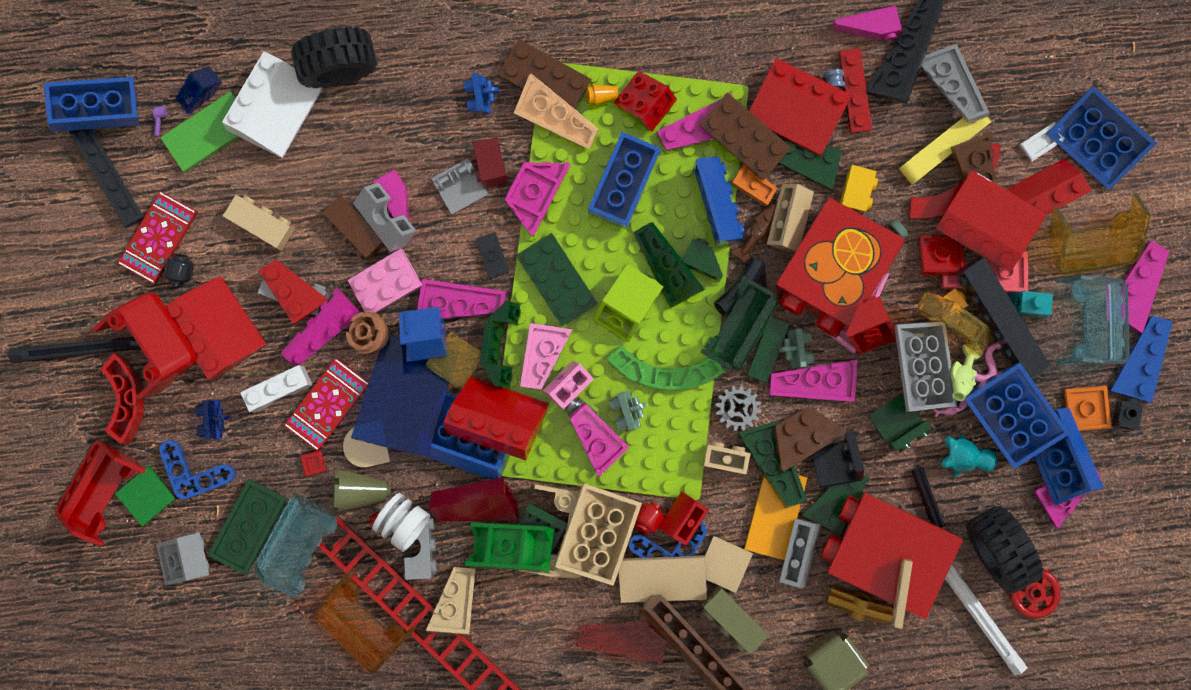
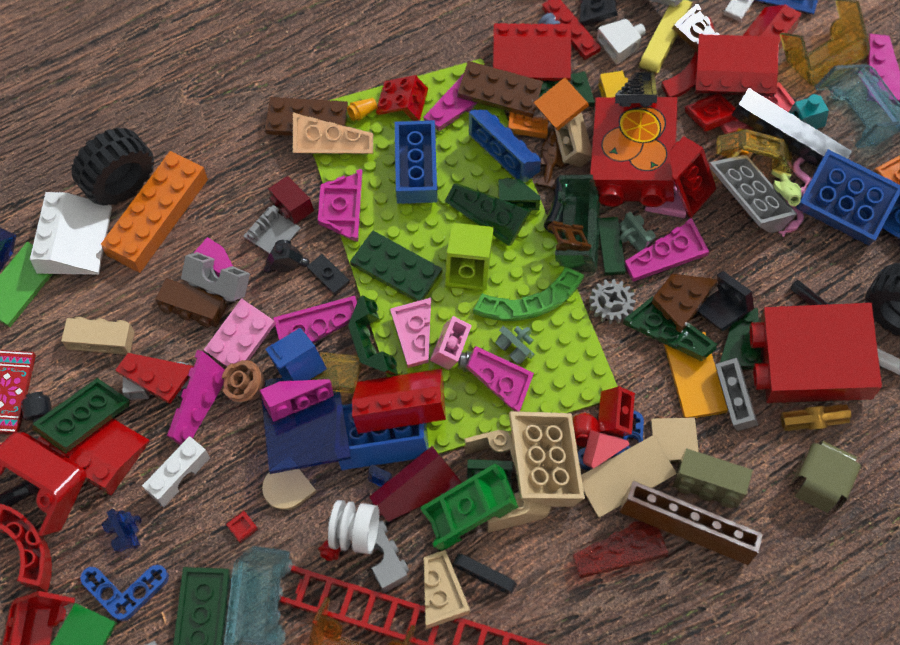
camera: 25 degrees left, 20 degrees down
(213, 299) = (80, 415): none -> dark green plate
(327, 404) = (231, 467): red tile -> none
(357, 490) = (296, 527): olive cone -> none
(359, 115) = (154, 211): none -> orange brick
(399, 369) = (292, 396): none -> dark pink slope
(449, 477) = (378, 476): none -> clear blue tile
(459, 221) = (284, 258): none -> black rock
(483, 93) = (250, 147): blue hips -> none
(498, 605) = (484, 574): none -> black beam
(653, 546) = (602, 447): none -> coral slope
(726, 340) = (571, 242): none -> reddish brown piece
(726, 459) = (625, 345): tan brick -> none
(792, 186) = (561, 104): none -> orange tile
(871, 216) = (639, 89): none -> black wing
(896, 130) = (620, 39): none -> white torso
(897, 425) = (757, 253): dark green bracket -> none
(902, 593) = (848, 370): tan tile -> none
(965, 456) = (830, 252): teal animal -> none

